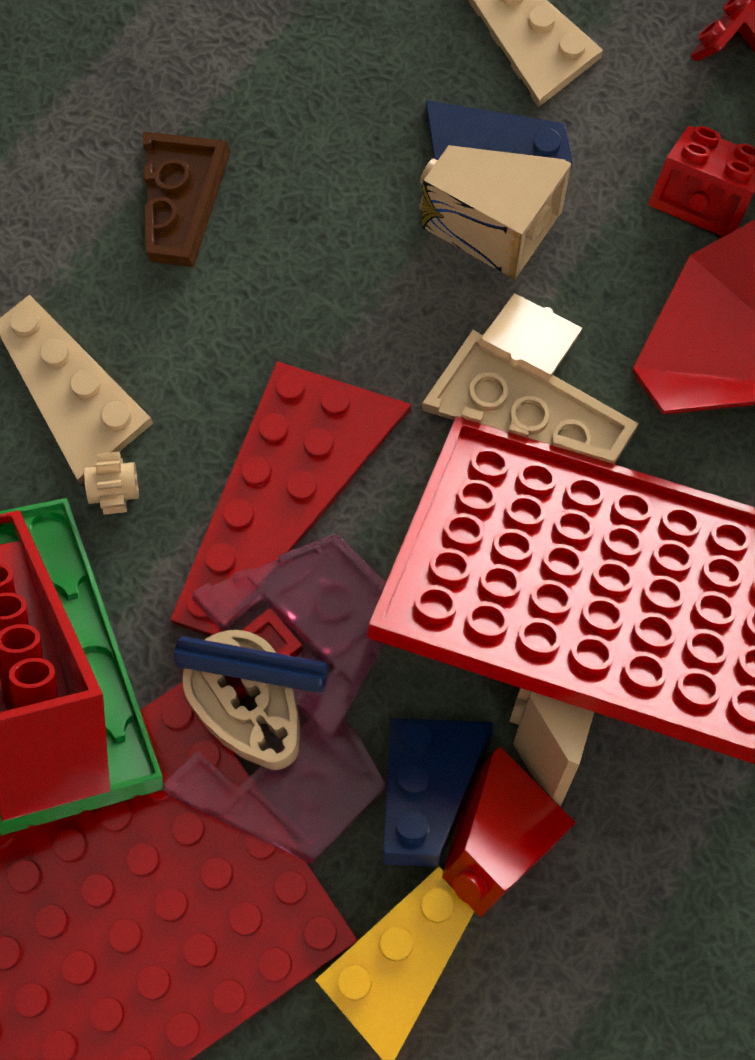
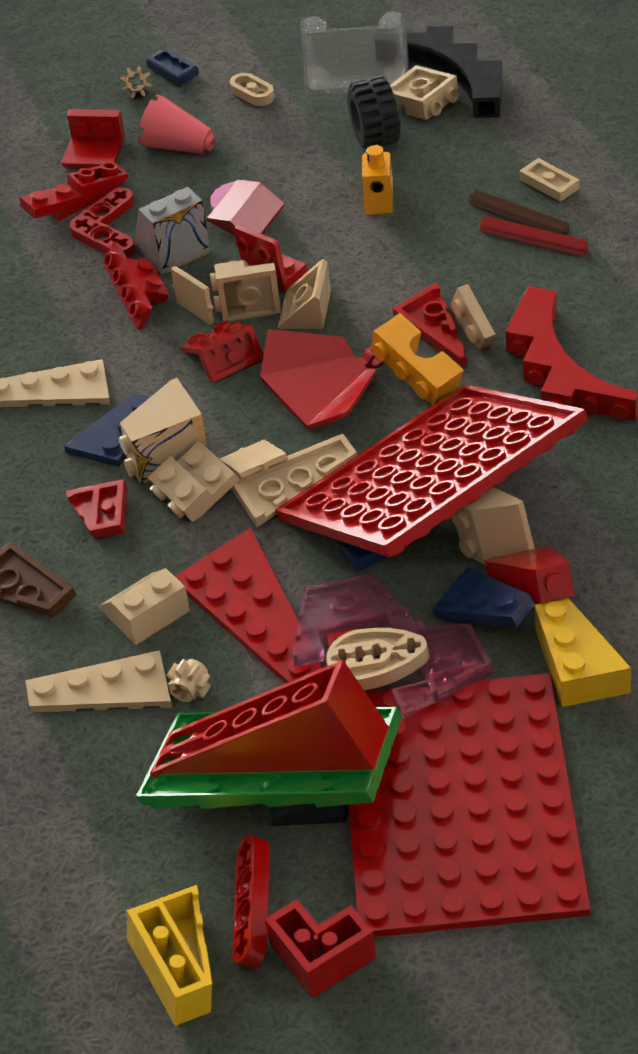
camera: 55 degrees left, 25 degrees down
(212, 355) = (147, 605): none -> tan slope
(251, 664) = (362, 633): dark blue axle -> none
(346, 208) = (101, 507): none -> red wing
(443, 287) = (192, 482): none -> tan plate

